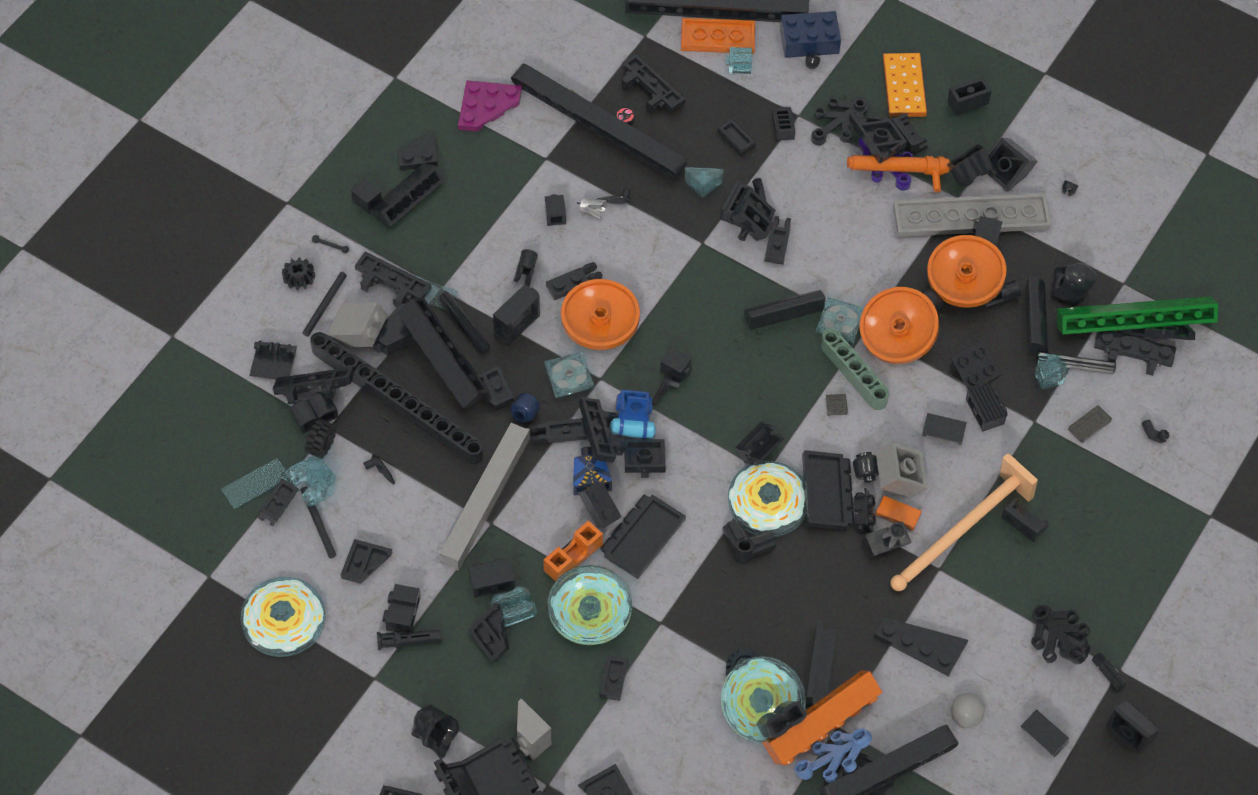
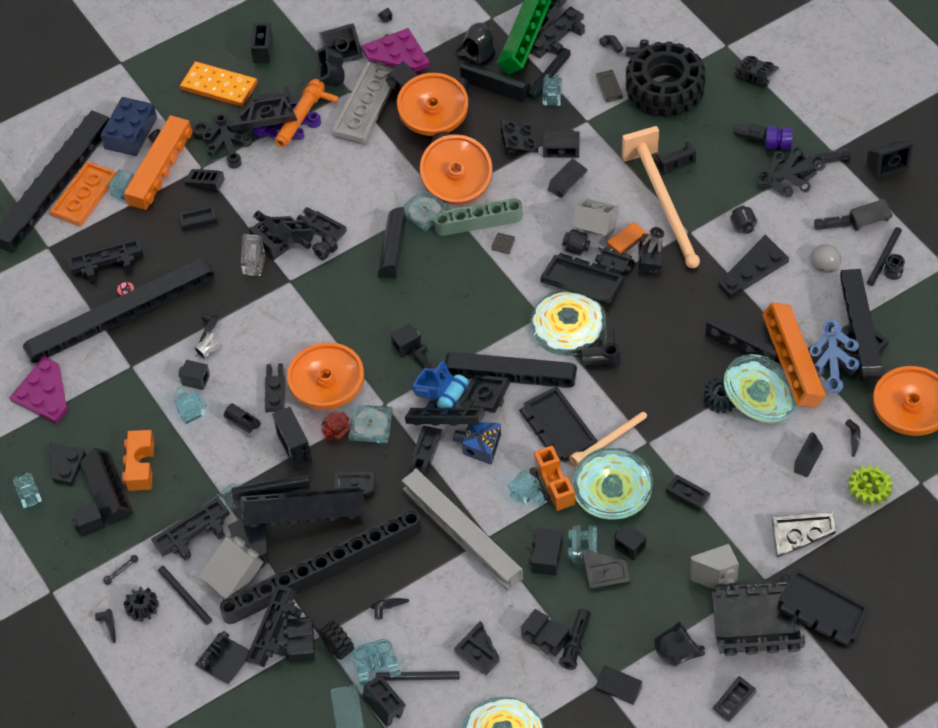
camera: 60 degrees left, 5 degrees down
(275, 257) = (109, 619): none -> black bar
(374, 694) = (619, 685): none -> black slope
(375, 136) = (27, 490): none -> clear light blue brick
(456, 199) = (138, 446): none -> orange arch
(520, 221) = (190, 405): none -> clear light blue brick
(525, 407) = (388, 467): dark blue head -> none
(533, 646) = (630, 542): none -> black brick
(551, 345) = (335, 425): none -> clear red head
(553, 532) = (525, 488): none -> clear light blue brick
(599, 504) = (519, 440): black brick -> none
(610, 564) = (576, 457): none -> light nougat piece
(685, 468) = (515, 369): none -> black beam
(703, 179) = (228, 256): clear light blue slope -> none
(707, 197) = (252, 255): none -> clear slope
(708, 774) = (808, 455): none -> black slope
(748, 253) = (325, 247): none -> black wheel
(758, 444) = (516, 307): black hinge -> none
(778, 722) = (789, 378): black brick -> none
(781, 76) = (158, 162): none -> orange brick
(841, 93) = (199, 128): none -> black tile
(975, 612) = (743, 219): none -> black head
(988, 784) = (894, 266): none -> black wheel
(1002, 767) = (886, 252): none -> black bar
(1018, 699) = (832, 222): none -> black axle
(1022, 215) = (395, 49): none -> magenta plate
(1098, 579) = (745, 130): none -> black hinge
(1101, 608) = (779, 138): none -> dark purple wheel
(1112, 494) = (661, 60): none -> black tyre
(1149, 406) = (611, 40): none -> black arm
(1189, 555) = (760, 70): none -> black hinge

